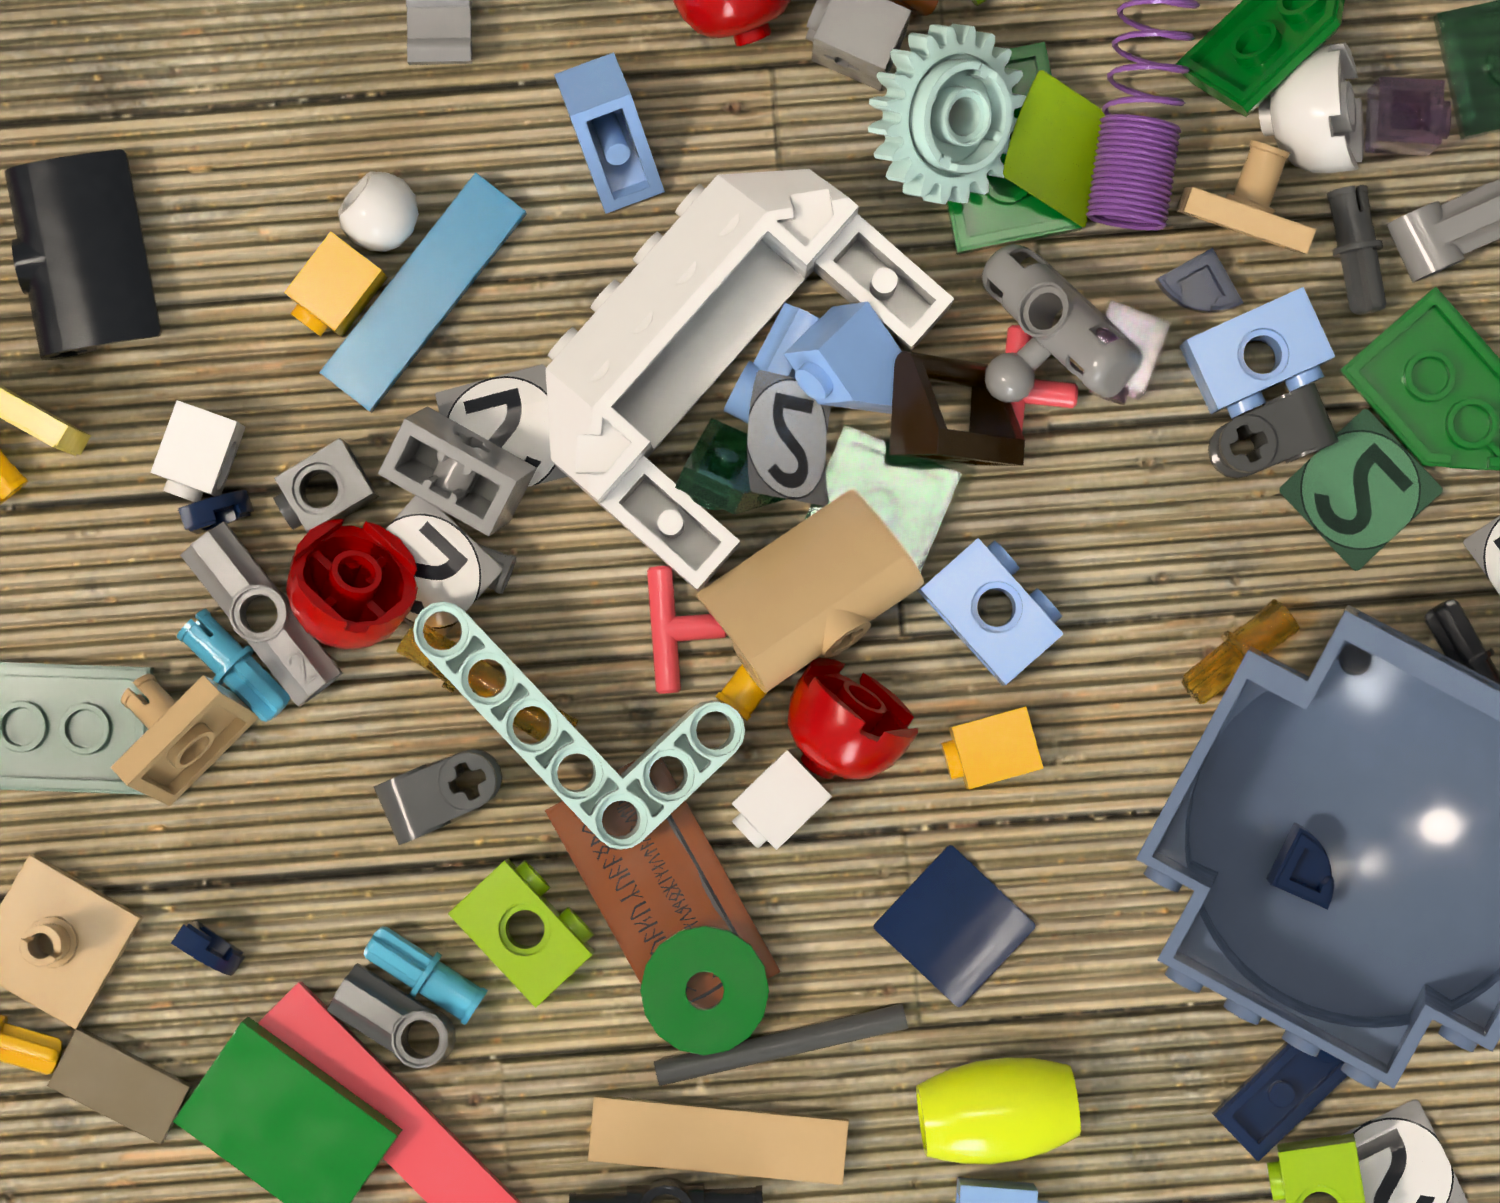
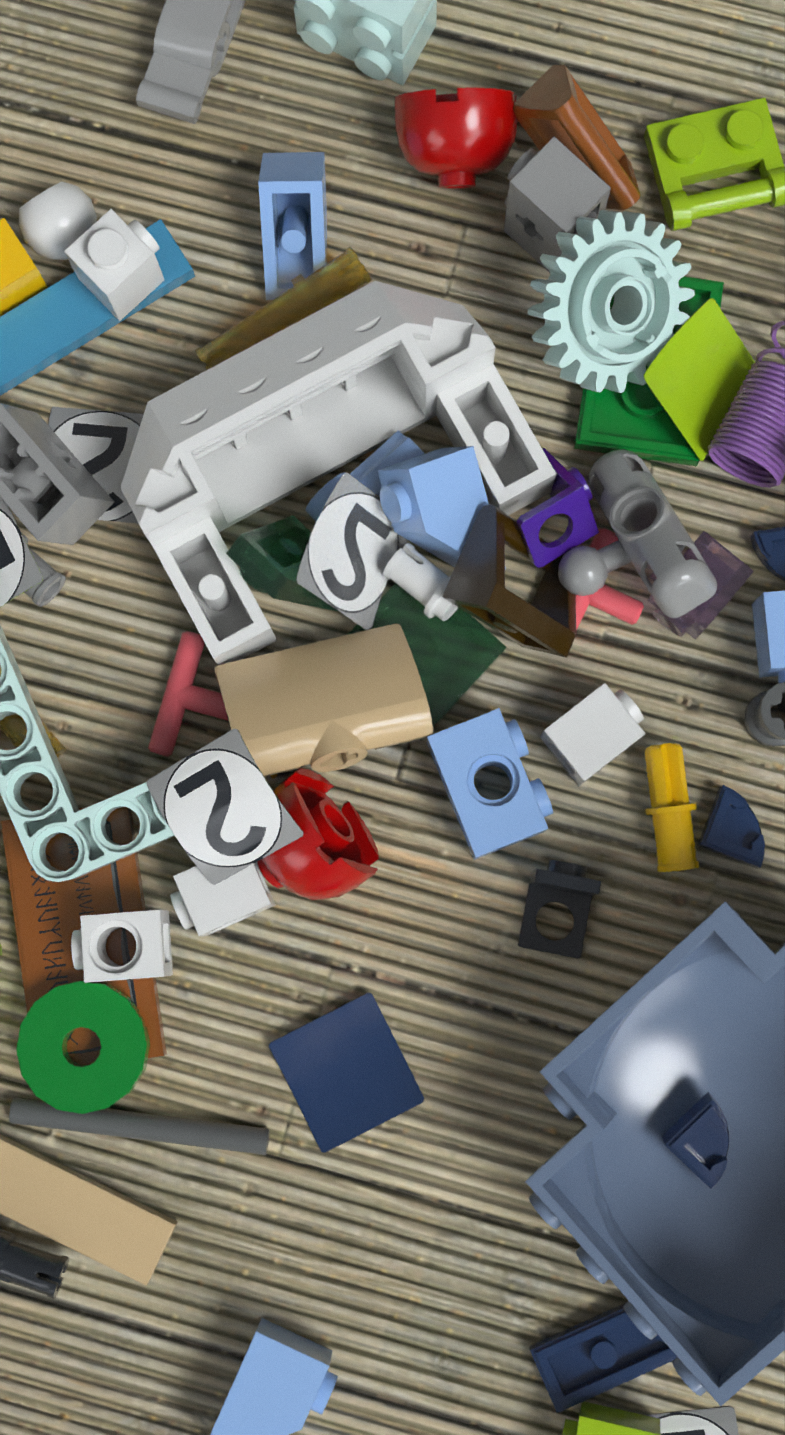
camera: 25 degrees right, 5 degrees down
(458, 237) = (116, 263): none -> white brick
(633, 225) = (306, 297): none -> clear yellow pin
(726, 859) = (152, 952): none -> white brick
(759, 725) = (222, 808): none -> sticker
(861, 441) = (421, 581): none -> white pin
(977, 319) = (568, 496): none -> dark purple bracket
(992, 748) = (442, 914): yellow brick -> none
(998, 1110) = (321, 1269): neon yellow piece -> none
(1074, 526) = (594, 732): none -> white brick
(1097, 679) = (565, 885): none -> black bracket
(1170, 571) = (670, 808): none -> yellow axle
(1235, 569) = (733, 829): none -> dark blue tile
(1263, 631) = (678, 919): clear yellow axle -> none

